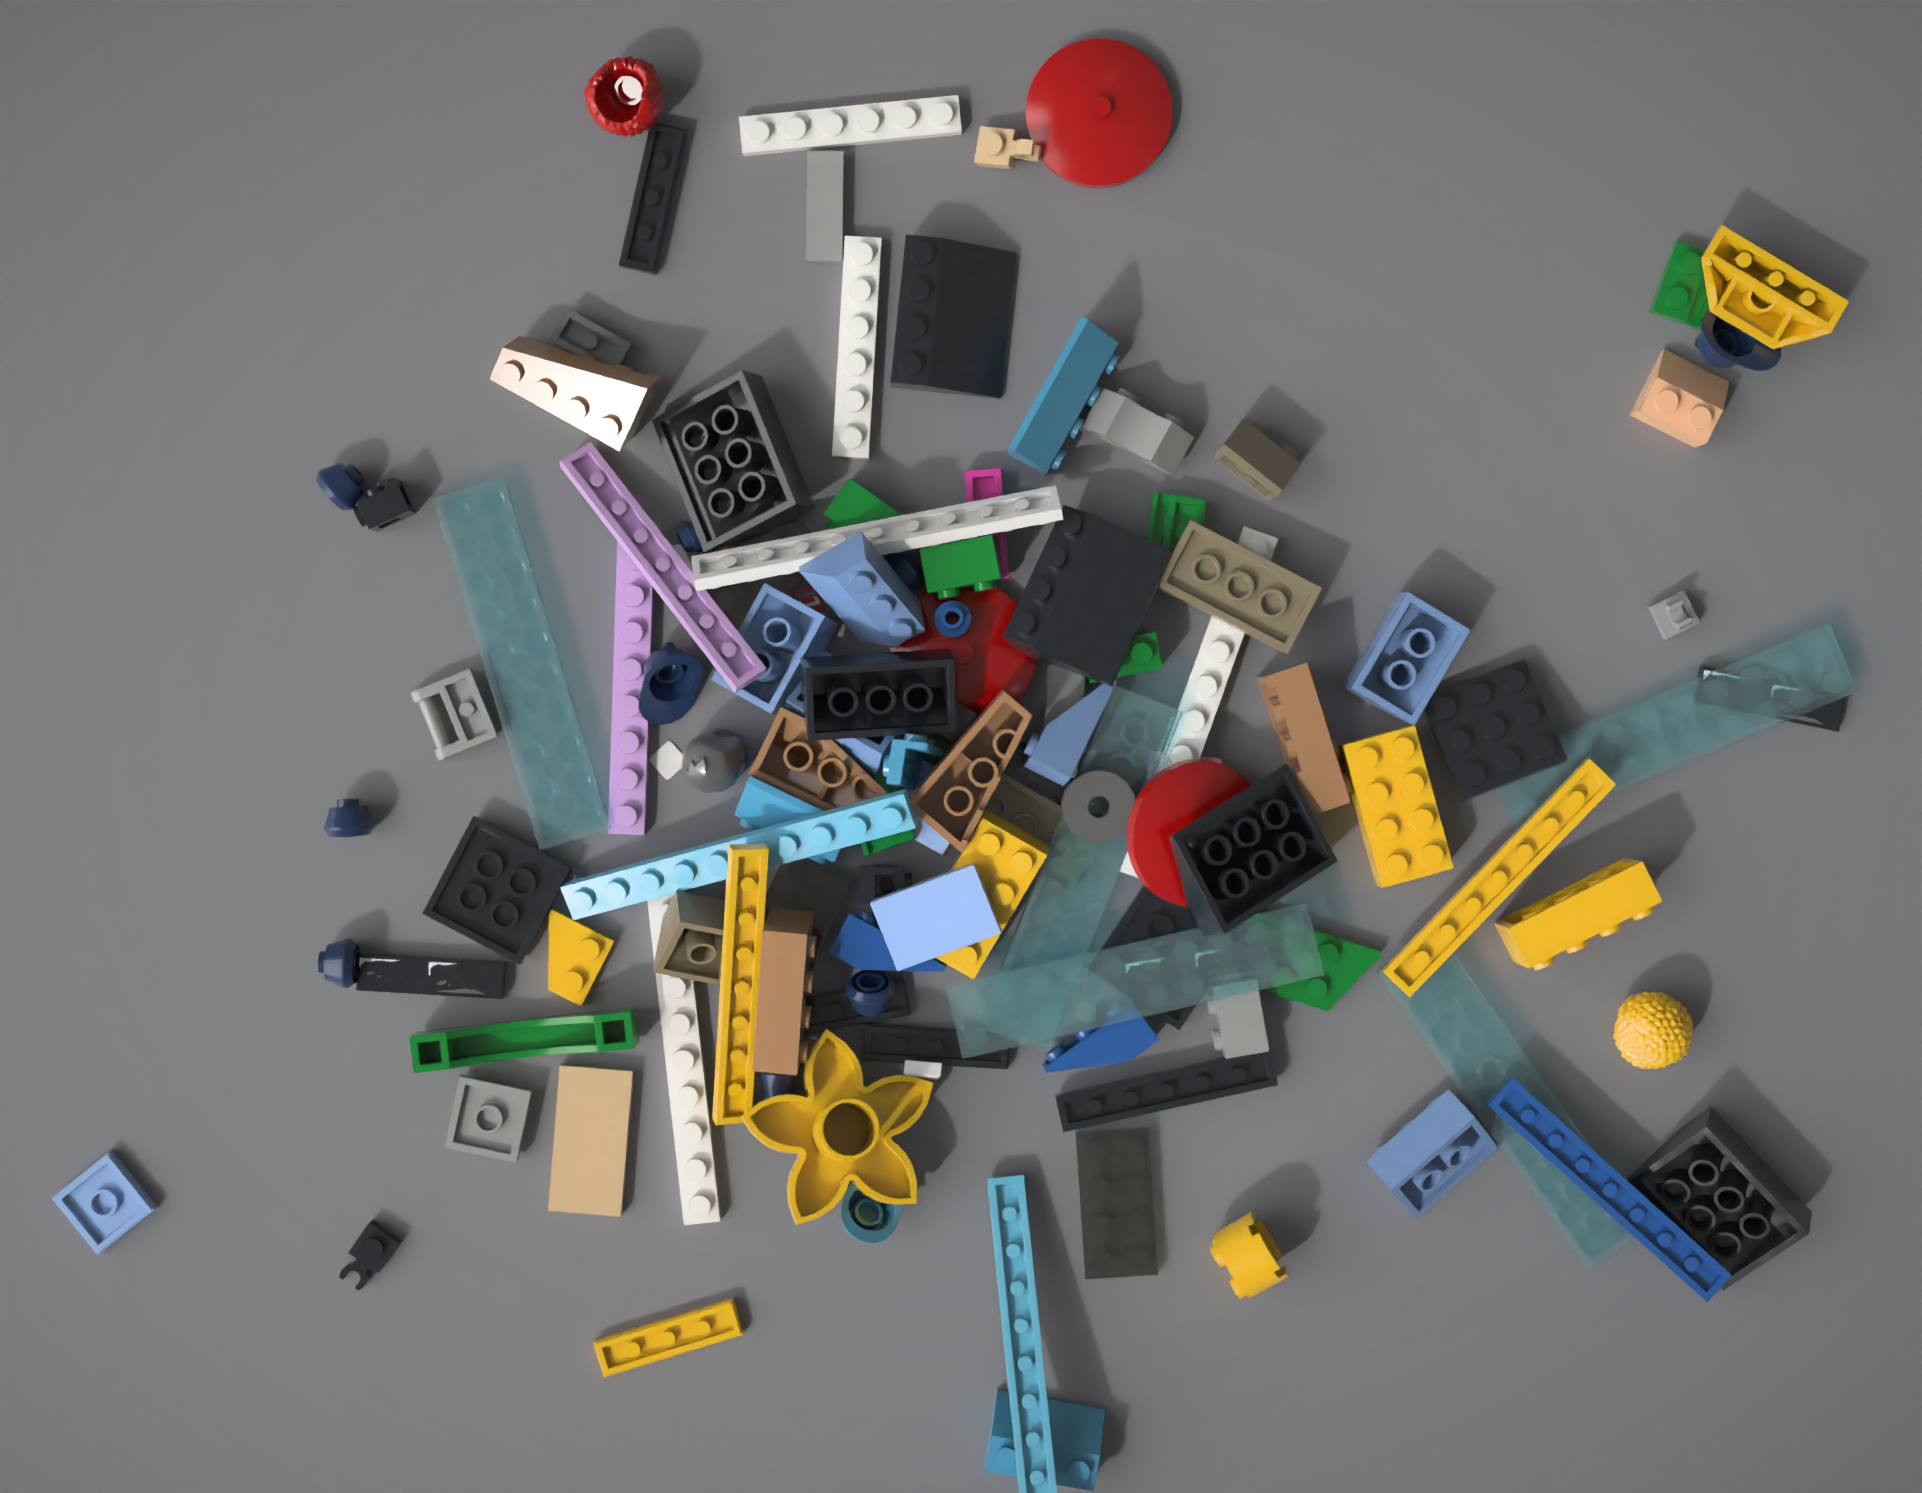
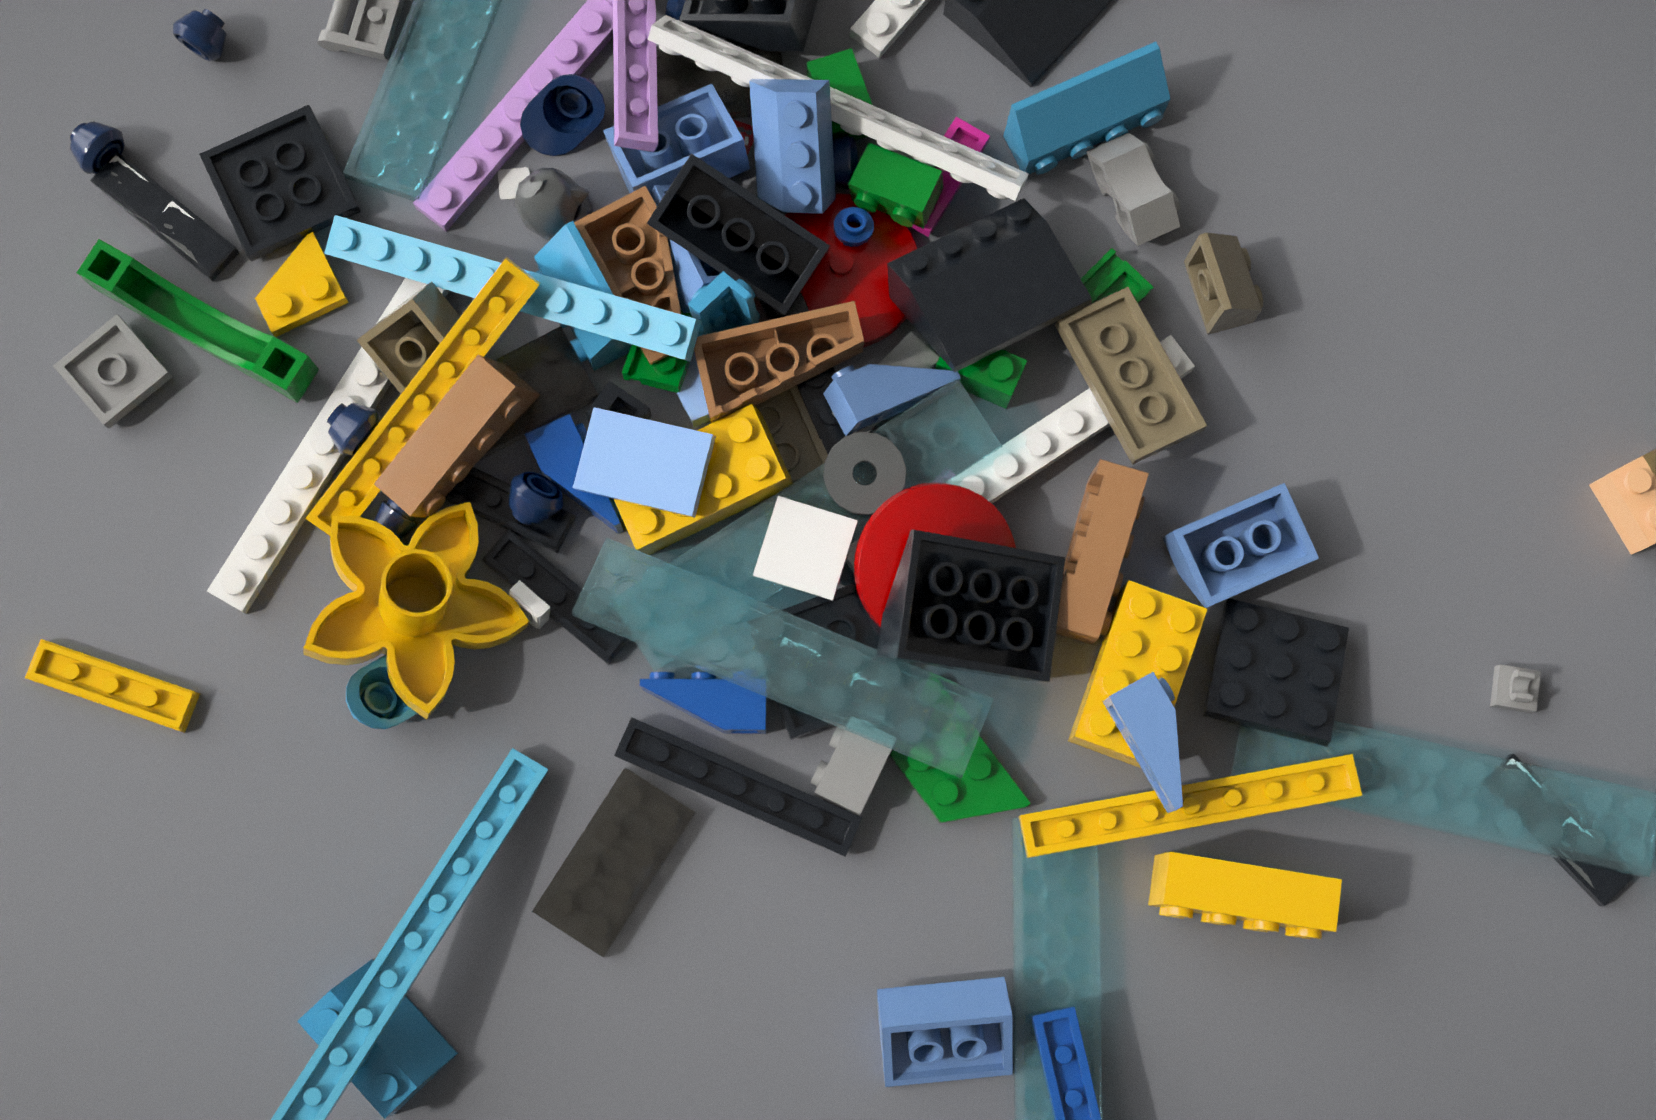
camera: 30 degrees right, 10 degrees down
(591, 1140) = (186, 457): tan tile -> none
(701, 1037) = (351, 426): none -> dark blue cone
(1094, 890) = (805, 548): none -> white tile
(1248, 1255) = (700, 998): yellow brick -> none
(1435, 849) = (1150, 730): none -> medium blue slope
(1653, 1030) = (1240, 1062): yellow hair -> none

